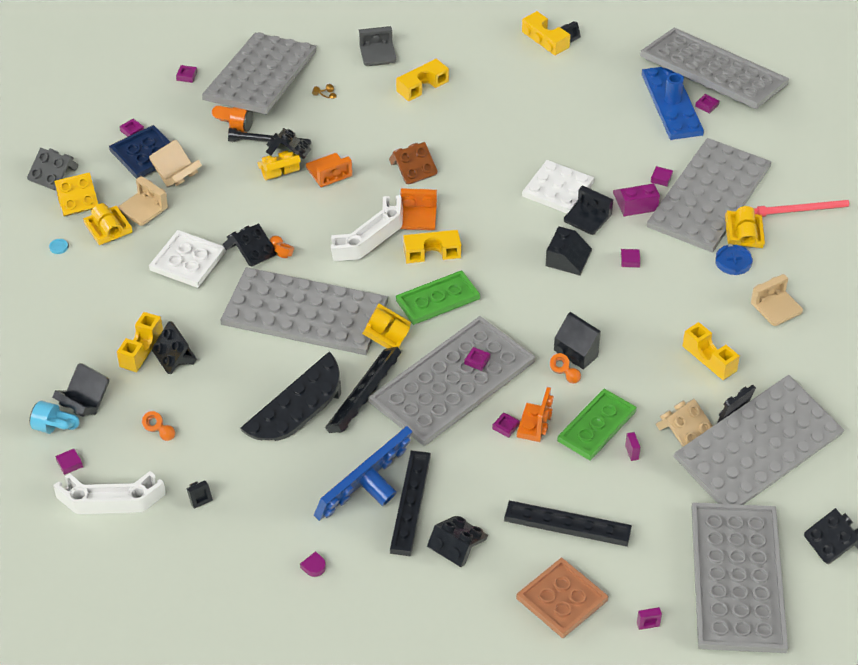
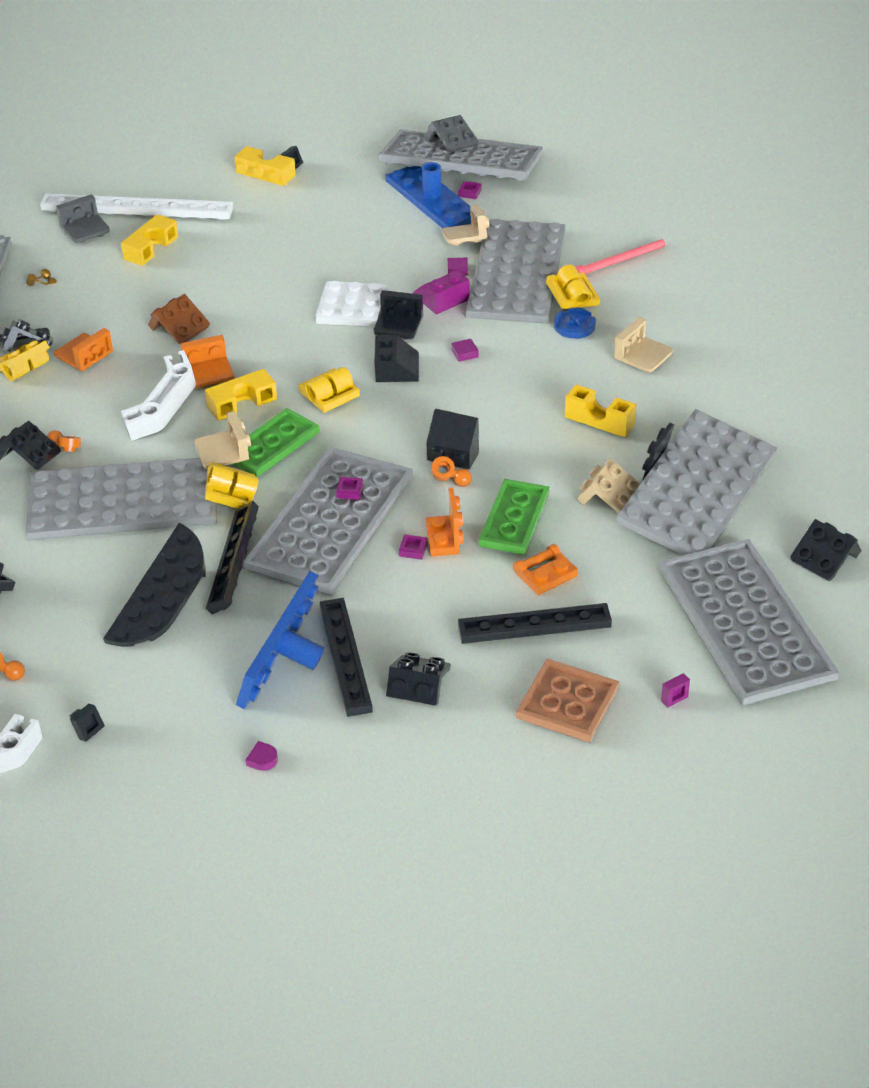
camera: 20 degrees left, 5 degrees down
(396, 291) = (226, 446): none -> tan bracket
(432, 45) = (147, 206): none -> white plate
(503, 263) = (330, 389): none -> yellow plate
(600, 484) = (549, 575): none -> orange plate
(632, 446) = (565, 526): magenta tile -> none
(684, 146) = (472, 232): none -> tan bracket
(713, 47) = (452, 132): none -> dark grey bracket

